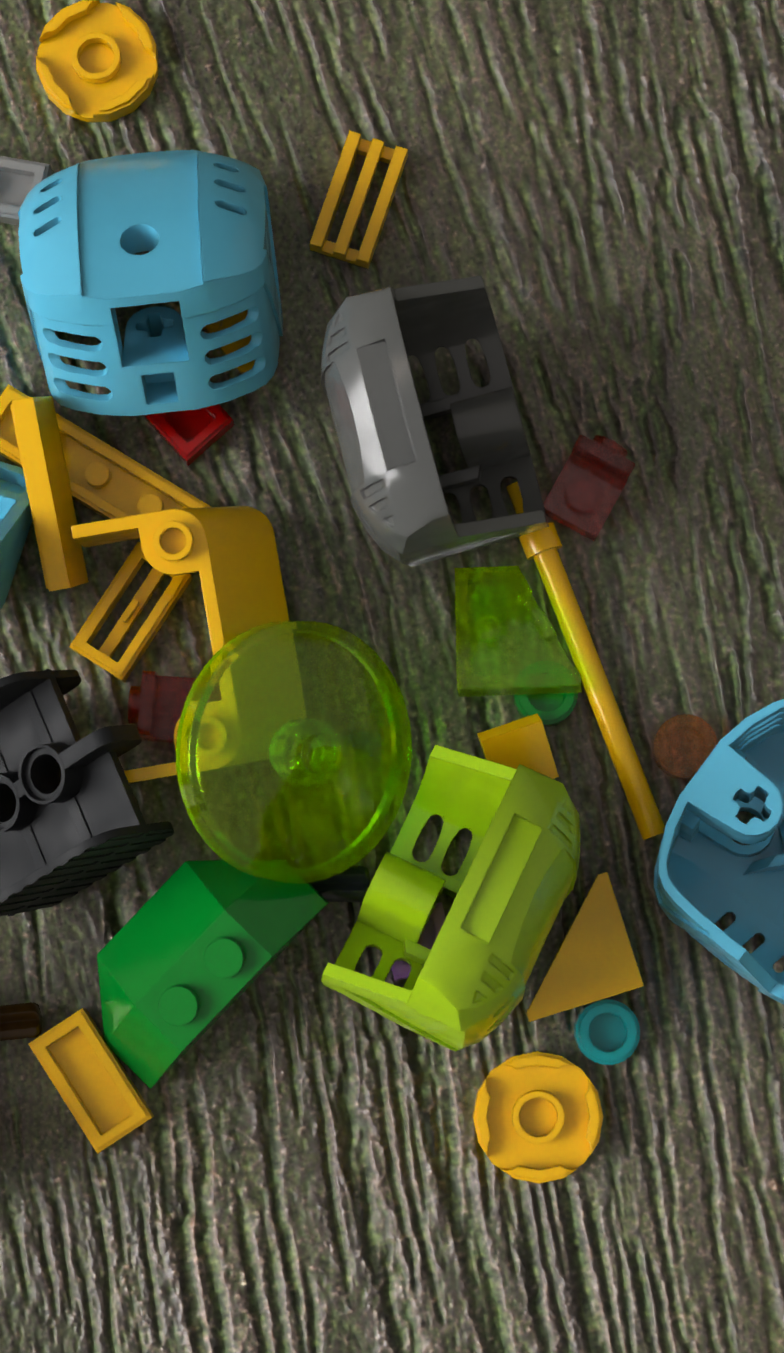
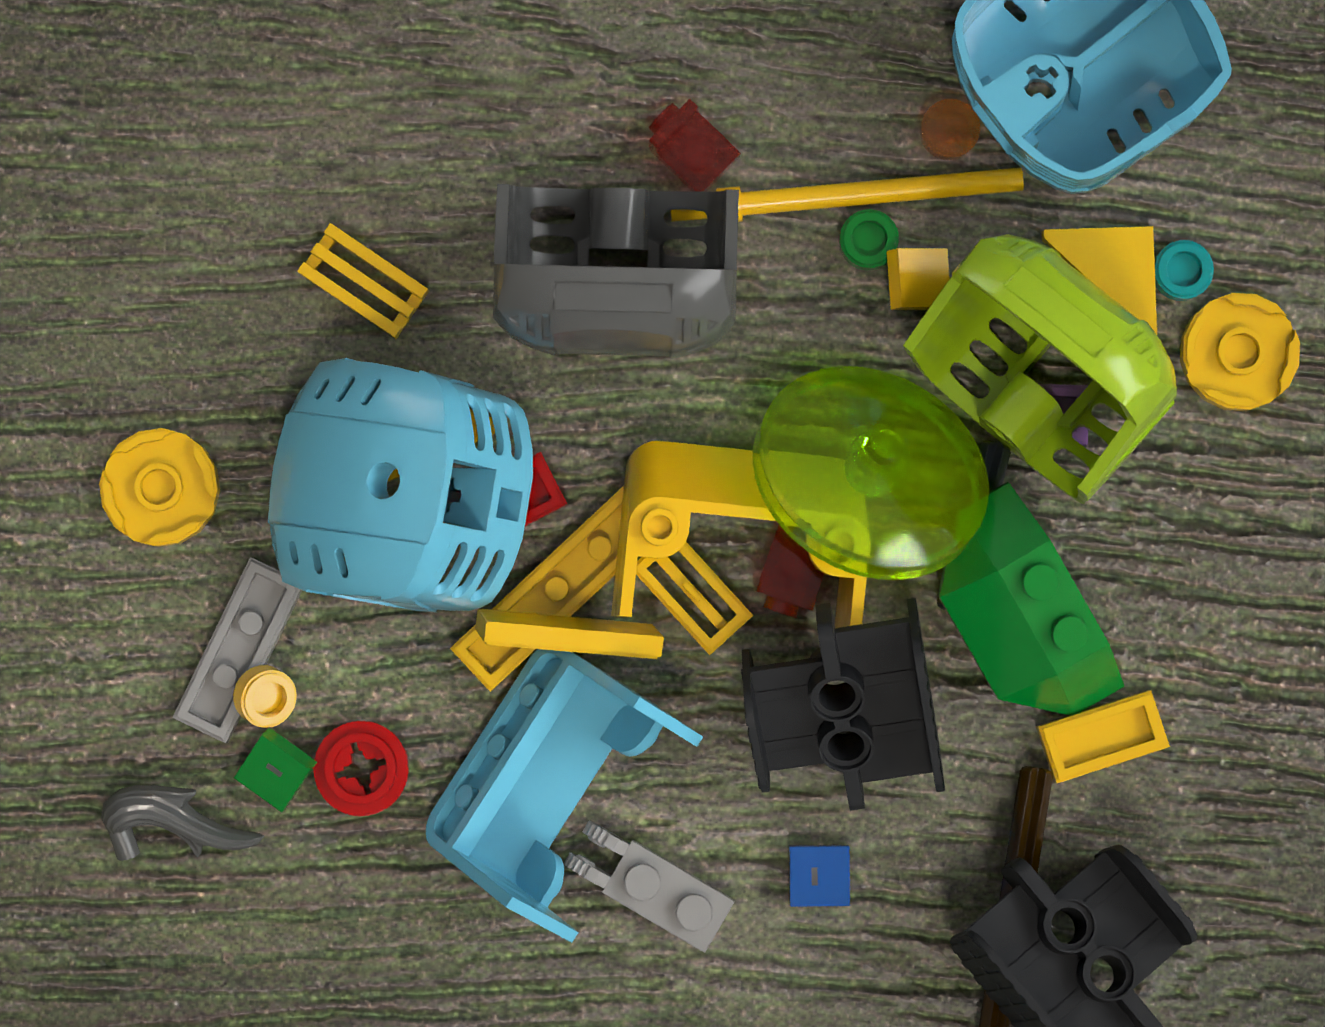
camera: 75 degrees left, 5 degrees up
(506, 638) = (811, 259): clear neon green wing -> none

